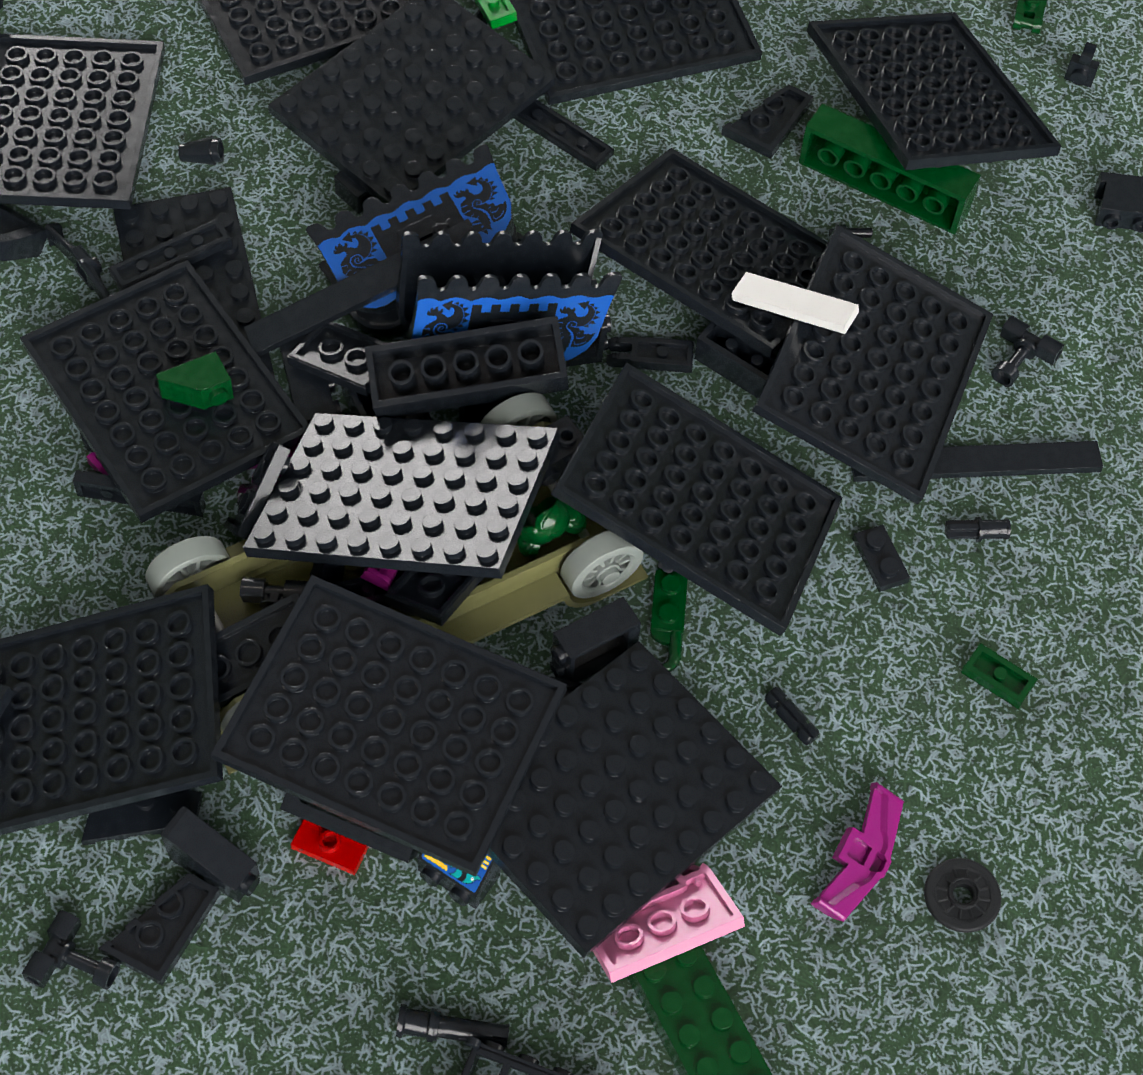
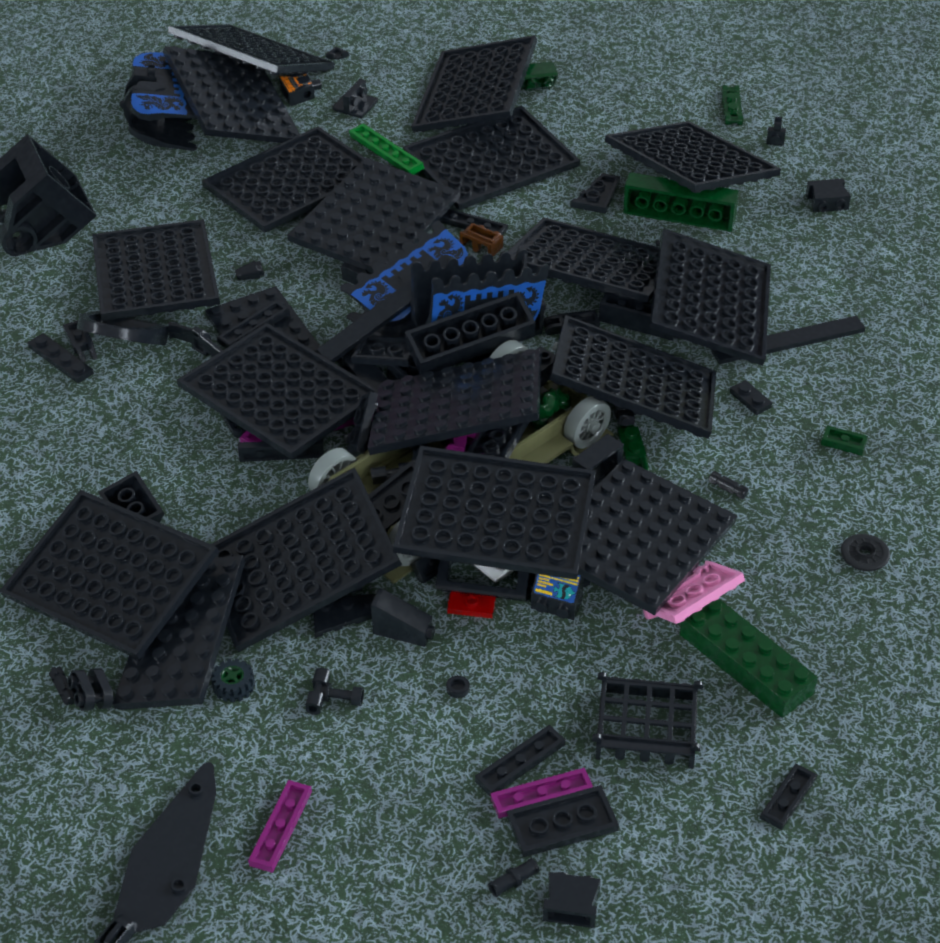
camera: 10 degrees left, 15 degrees down
(165, 930) = (385, 668): black wing -> none
(197, 382) = (301, 378): dark green slope -> none
(261, 990) = (457, 686): none -> black tile
(434, 1025) = (572, 680): black pin -> none
(557, 173) = (481, 235): none -> reddish brown window
(795, 302) = (654, 268): white tile -> none
(863, 855) = (799, 542): magenta plate -> none
(978, 529) = (803, 371): black axle -> none
(1025, 346) = (796, 278): black bar -> none

